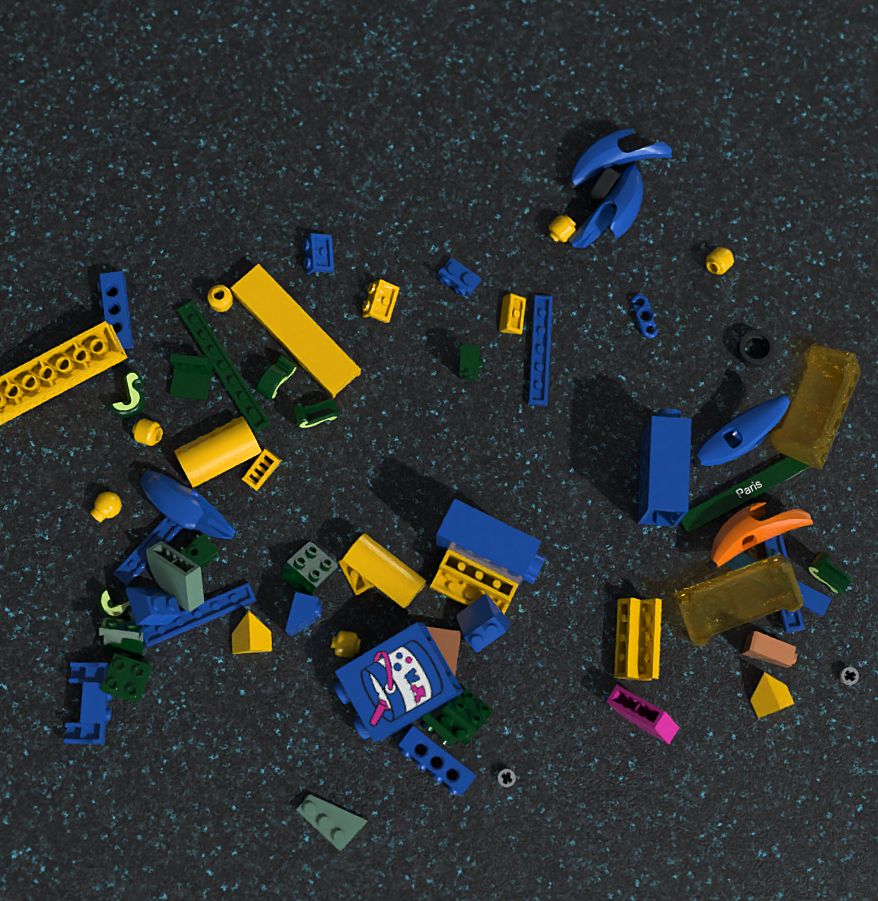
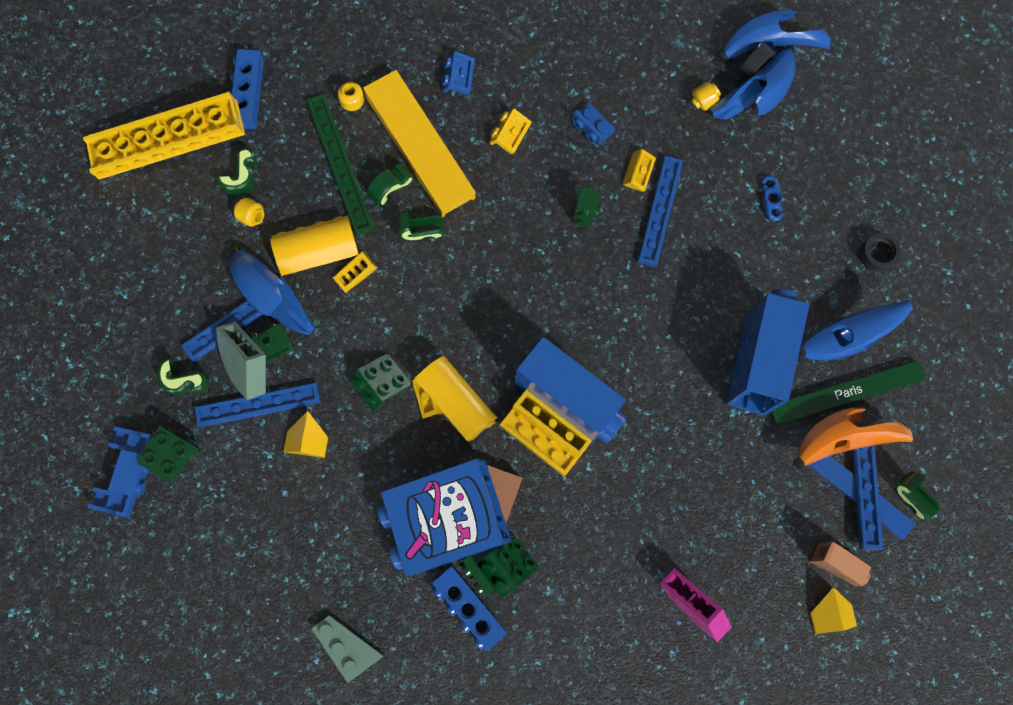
camera: 10 degrees right, 0 degrees up
(106, 506) = (190, 276): yellow piece -> none
(122, 636) = (173, 411): dark green bracket -> none
(152, 606) = (210, 386): blue slope -> none
(191, 376) = (305, 165): dark green bracket -> none
(303, 613) = (362, 425): blue slope -> none
(346, 644) = (401, 466): yellow head -> none
(482, 622) = (546, 473): blue slope -> none
(500, 779) = (545, 641): light grey bush -> none
(638, 639) = (705, 524): yellow brick -> none
(719, 260) = (859, 158): yellow head -> none
(738, 598) = (819, 502): clear yellow windscreen -> none
(818, 405) = (935, 321): clear yellow windscreen -> none
(849, 670) = (927, 608): light grey bush -> none

